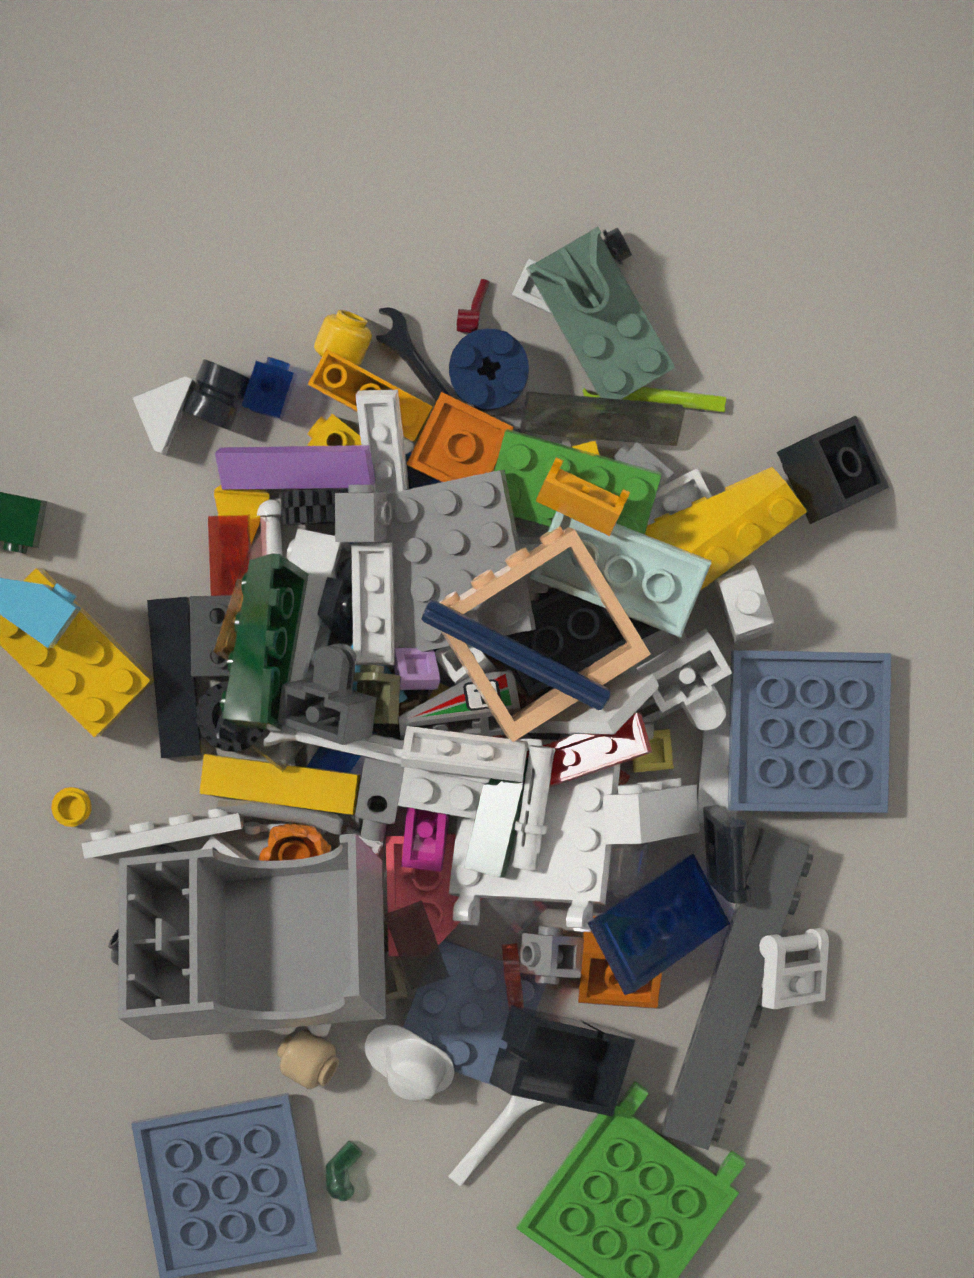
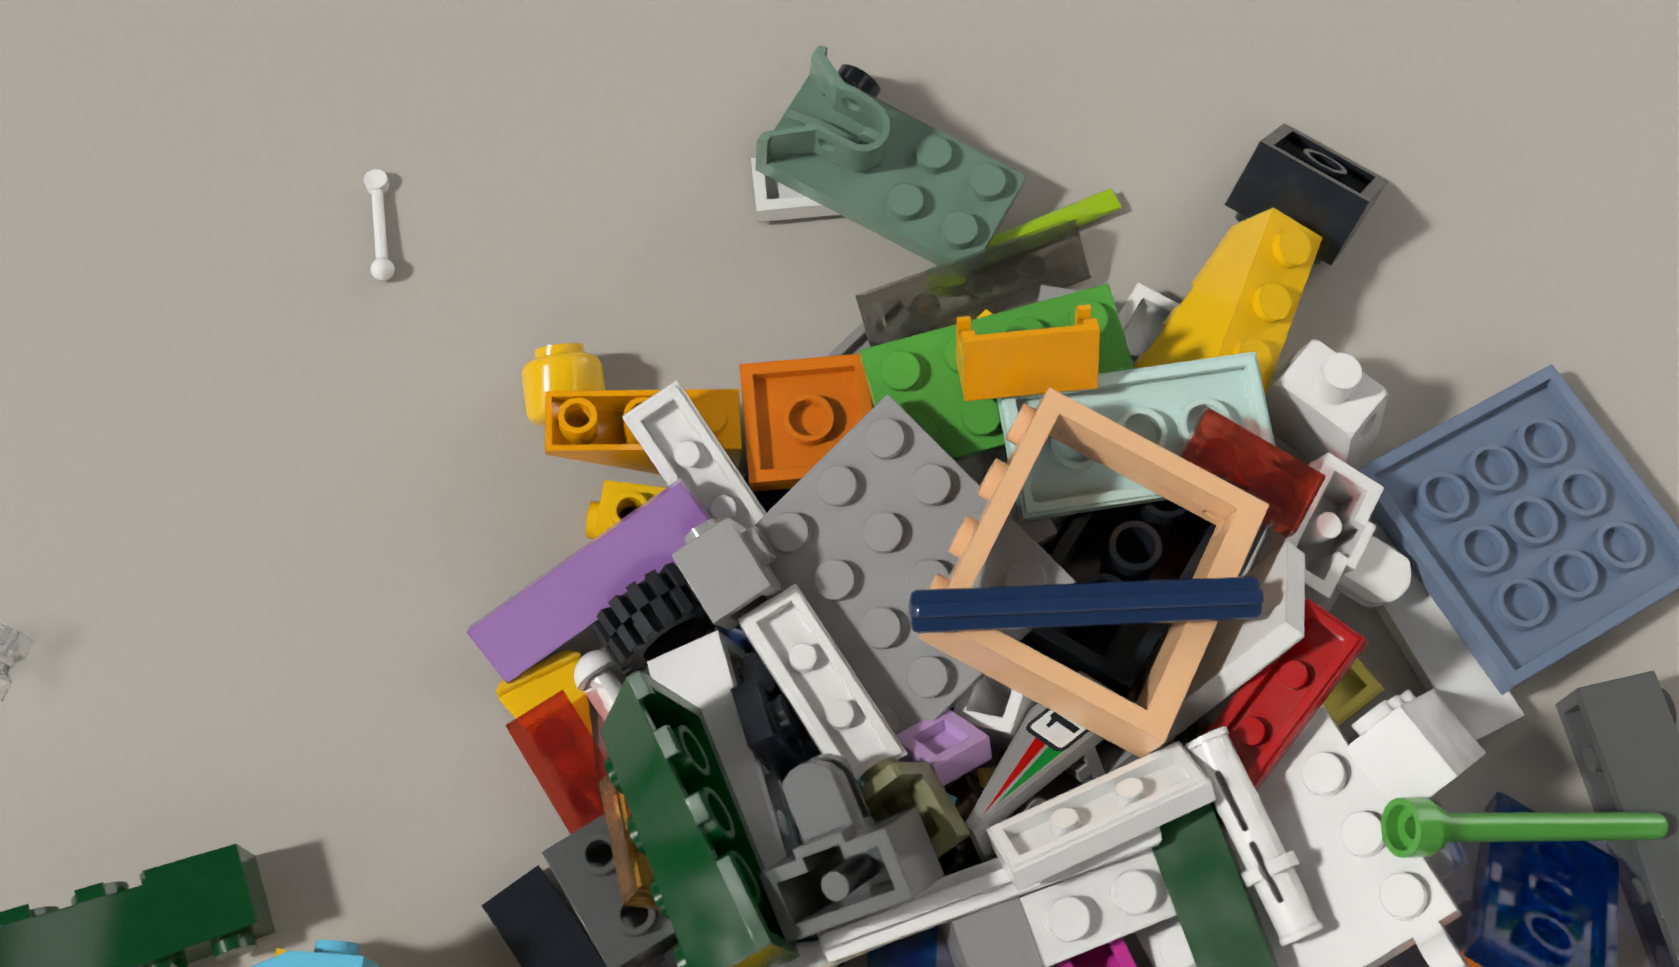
camera: 30 degrees left, 20 degrees down
(162, 411) = (358, 618): white slope -> none
(216, 394) = (424, 547): black wheel -> none
(269, 388) = (497, 508): clear blue brick -> none
(310, 138) = (377, 184): none -> white hinge
(400, 342) = (647, 357): black piece -> none
(469, 319) = (718, 278): dark red hand -> none
(500, 350) = (784, 305): dark blue brick -> none
(608, 854) = (1422, 828): none -> bright green piece
(658, 627) = (1255, 468): none -> clear red plate
(726, 854) = (1539, 759): black plate -> none

